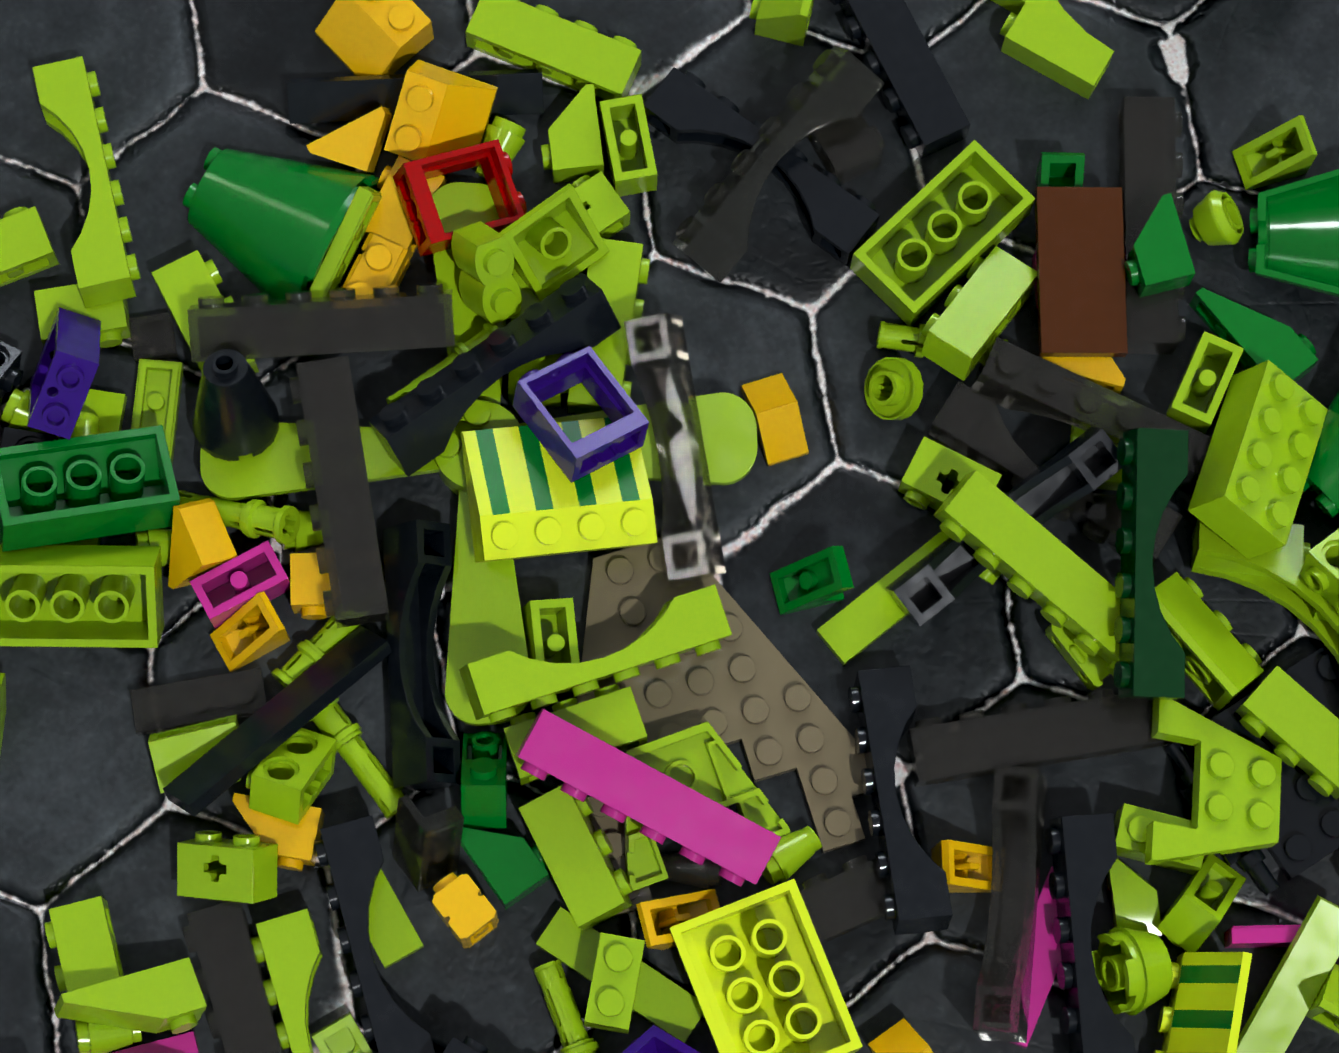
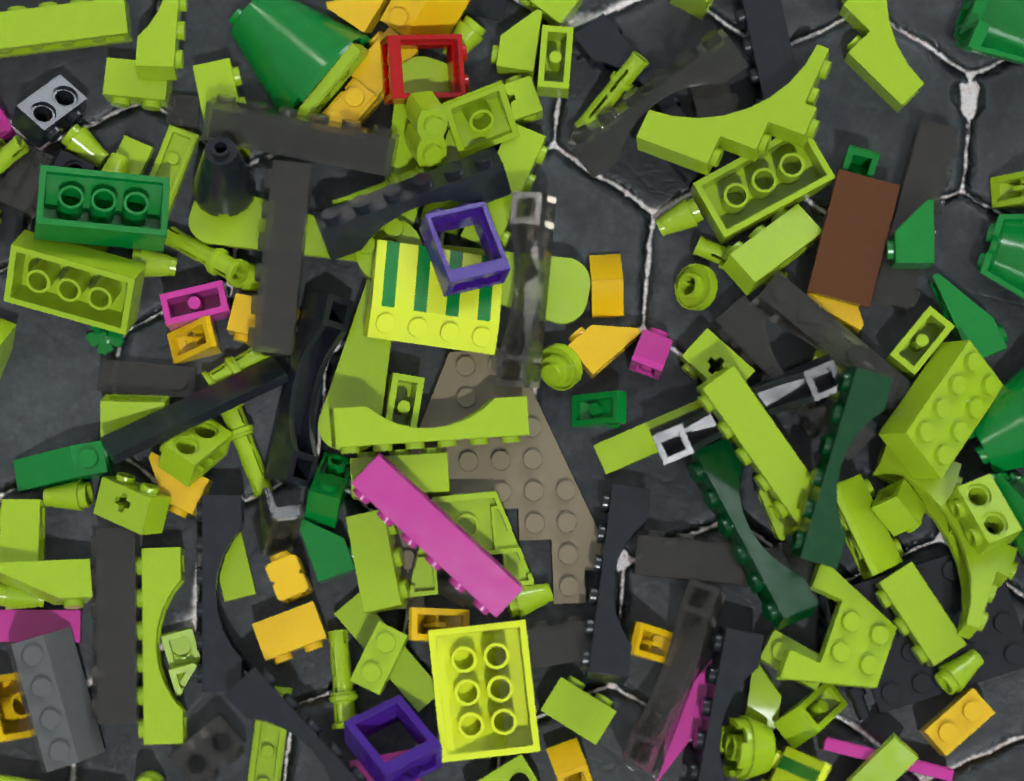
camera: 20 degrees right, 5 degrees up
(64, 379) = (110, 123): dark purple window -> none
(118, 845) = (62, 466): none -> green slope
(127, 663) = (104, 340): none -> green plant
(137, 883) = (71, 495): none -> lime cone
(197, 542) = (173, 267): yellow slope -> none
(485, 983) = (290, 632): none -> yellow brick
(716, 161) = (616, 87): none -> lime pin
(746, 538) = (560, 367): none -> lime plate
(789, 497) = (601, 345): none -> yellow slope
(846, 305) = (680, 217): none -> lime cone
(850, 196) = (701, 141): none -> lime arch
(859, 490) = (651, 353): none -> dark pink slope
(896, 981) = (579, 710): none -> lime brick
(1116, 746) = (781, 591): none -> dark green arch
(1217, 220) = (964, 226): lime cone -> none
(1239, 602) = (899, 507): none -> lime brick

